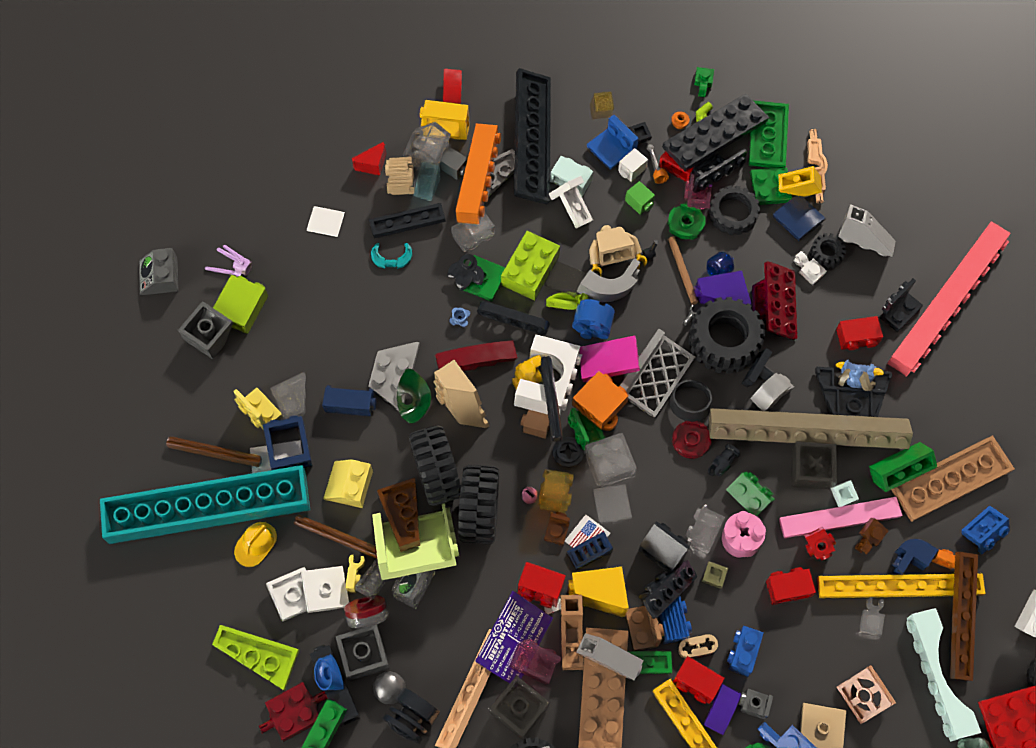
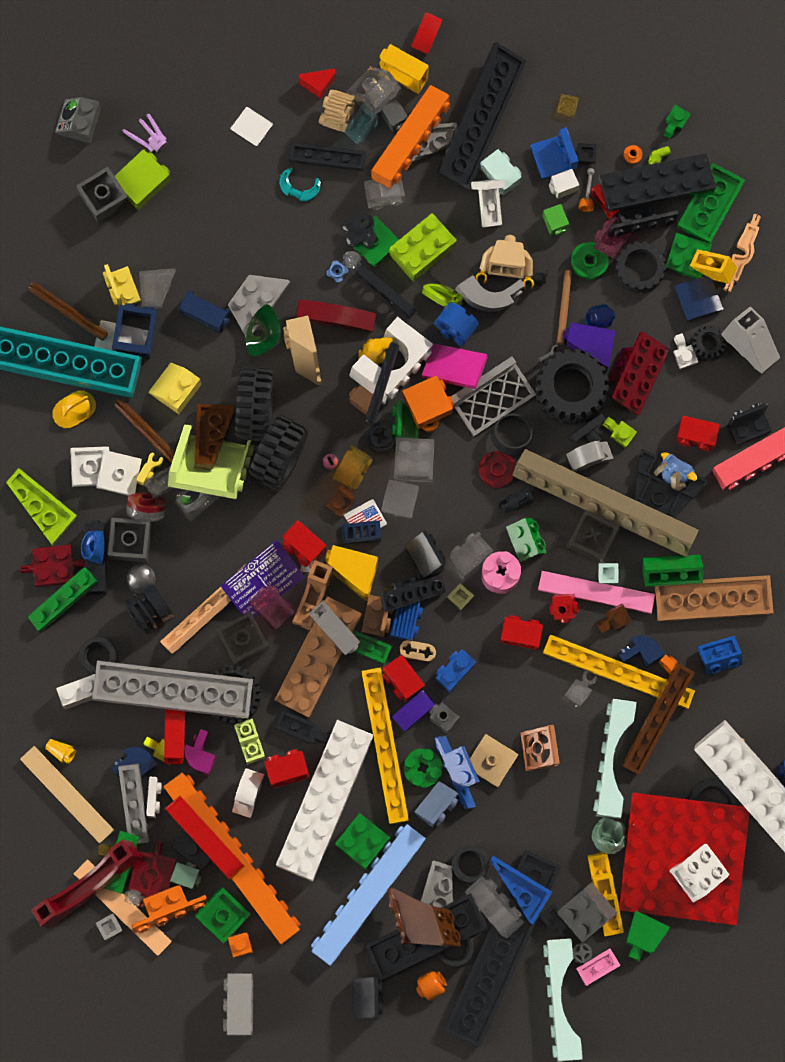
camera: 20 degrees right, 10 degrees up
(469, 301) = (351, 260): none -> clear plate
(789, 360) = (621, 433): none -> lime plate

